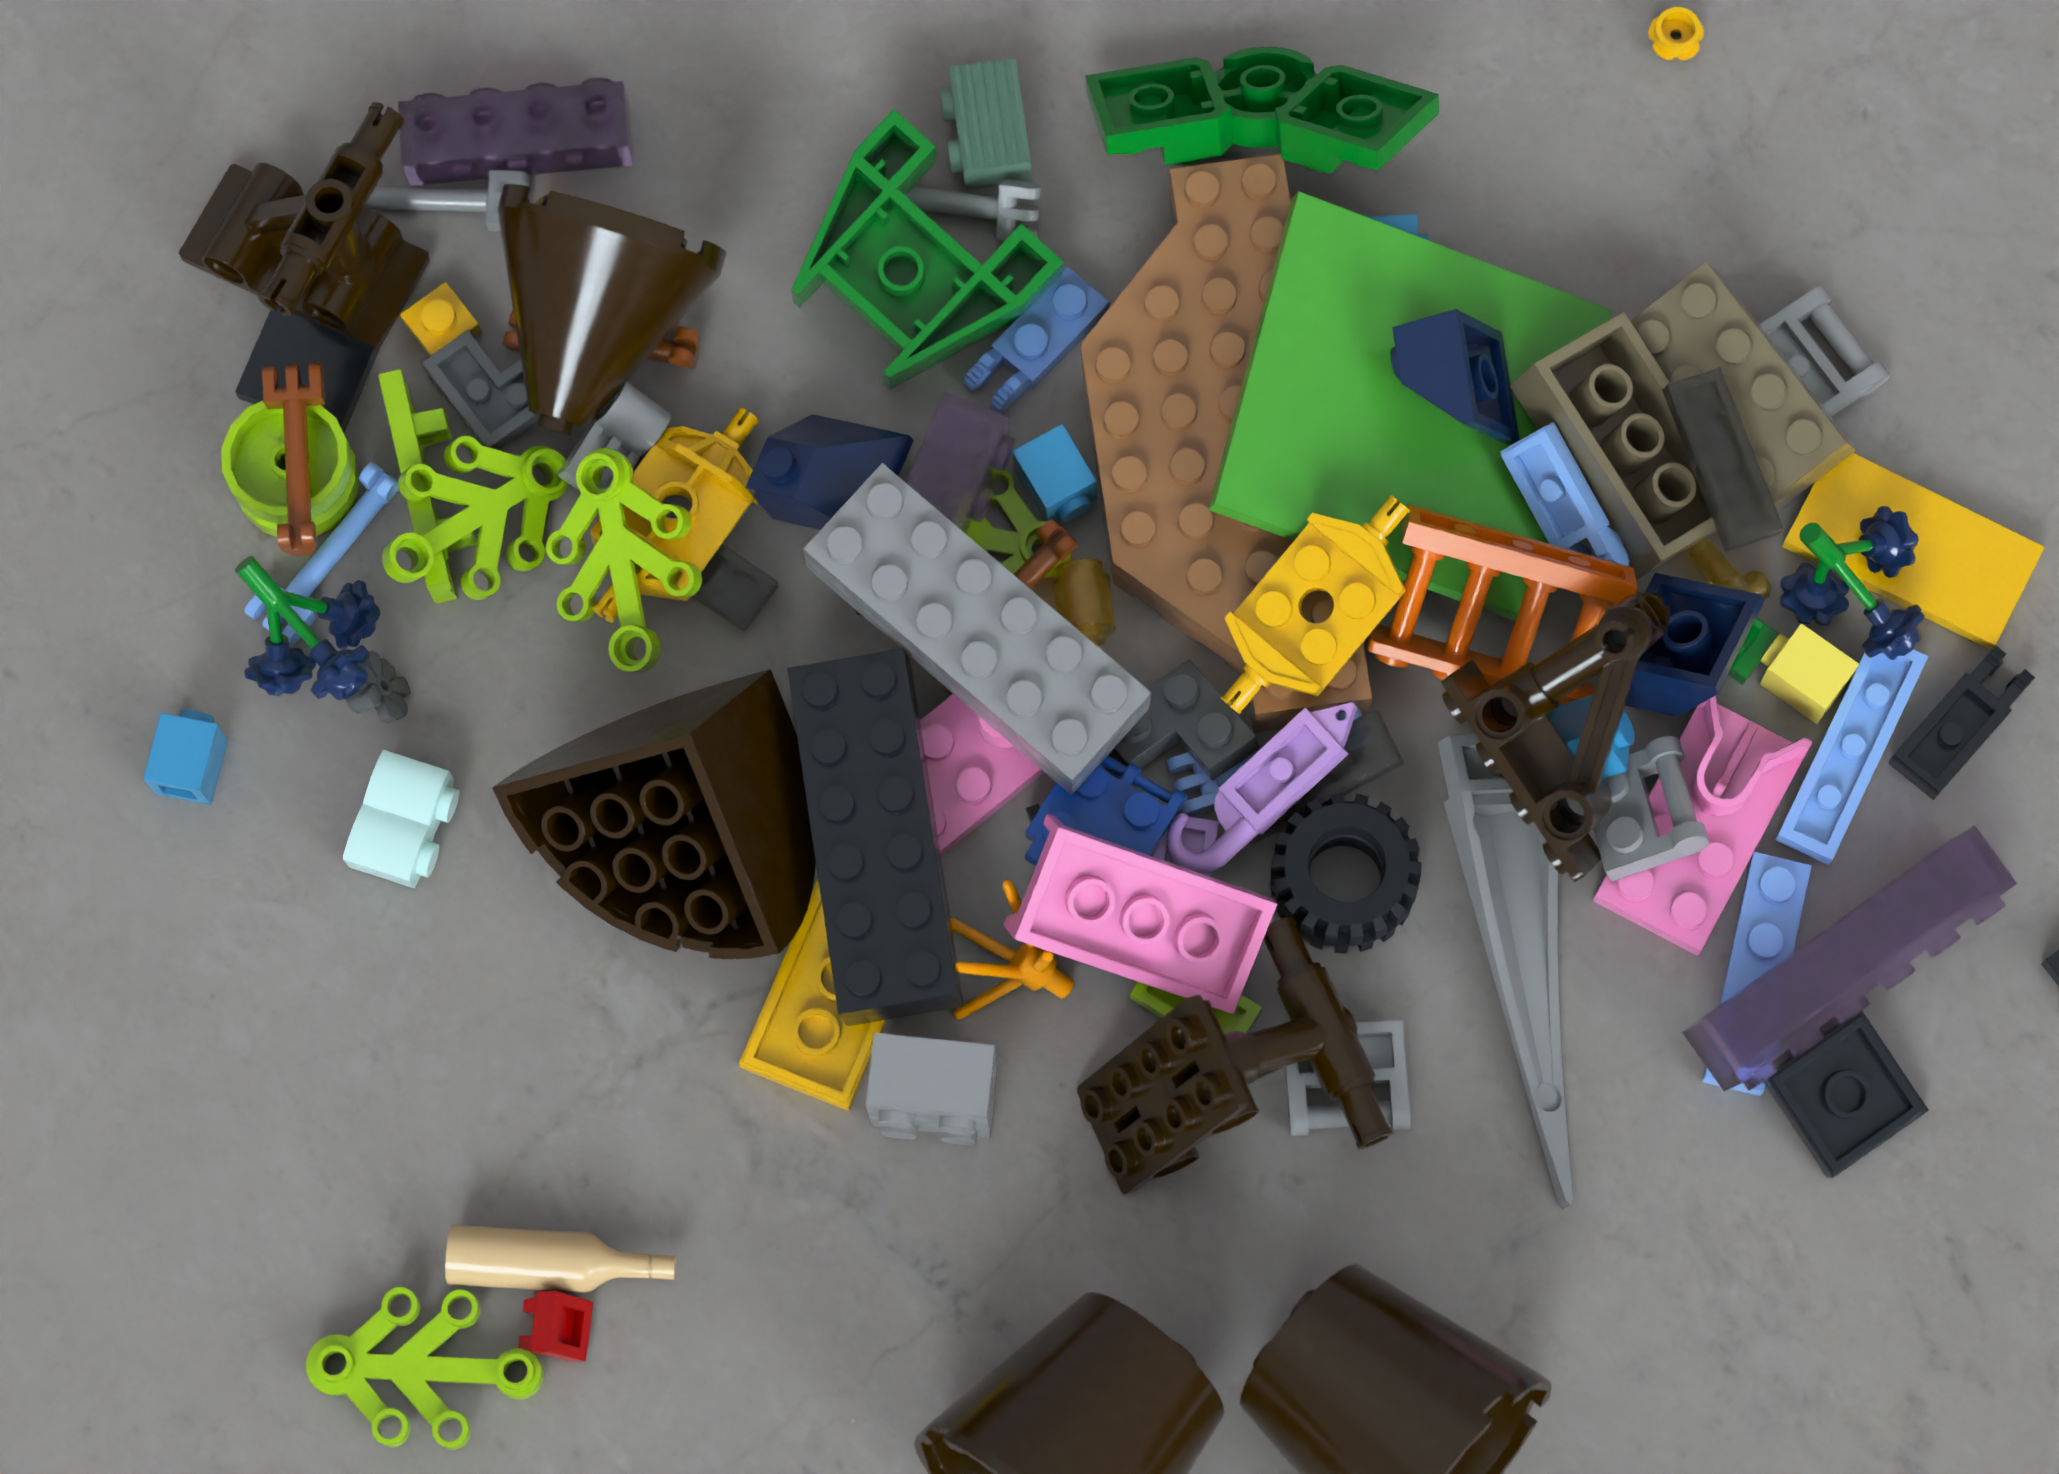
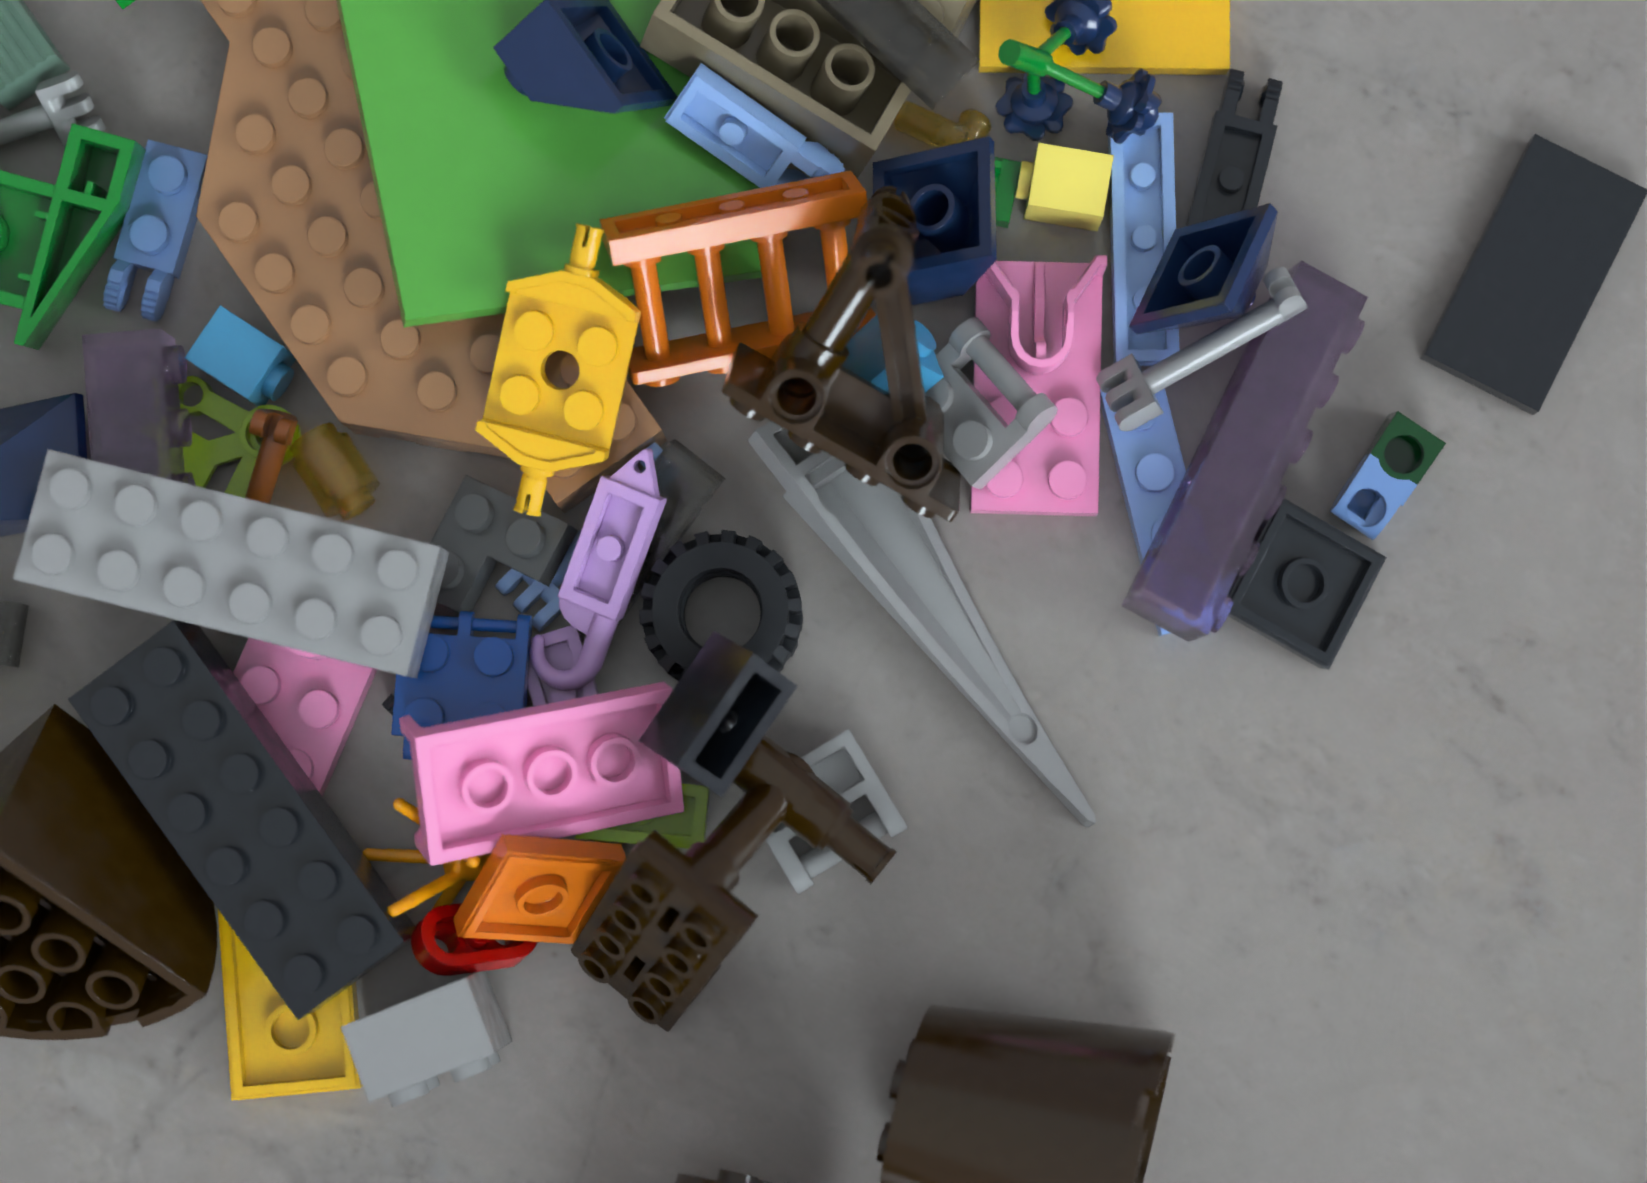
camera: 25 degrees left, 10 degrees up
(1007, 1022) = (463, 954): none -> red plate
(1081, 1012) = (538, 889): none -> orange plate
(1306, 937) = (718, 713): none -> black brick
(1779, 860) = (1133, 390): none -> light grey hinge
(1891, 798) = (1208, 272): none -> dark blue slope
(1962, 1040) = (1386, 474): none -> leg

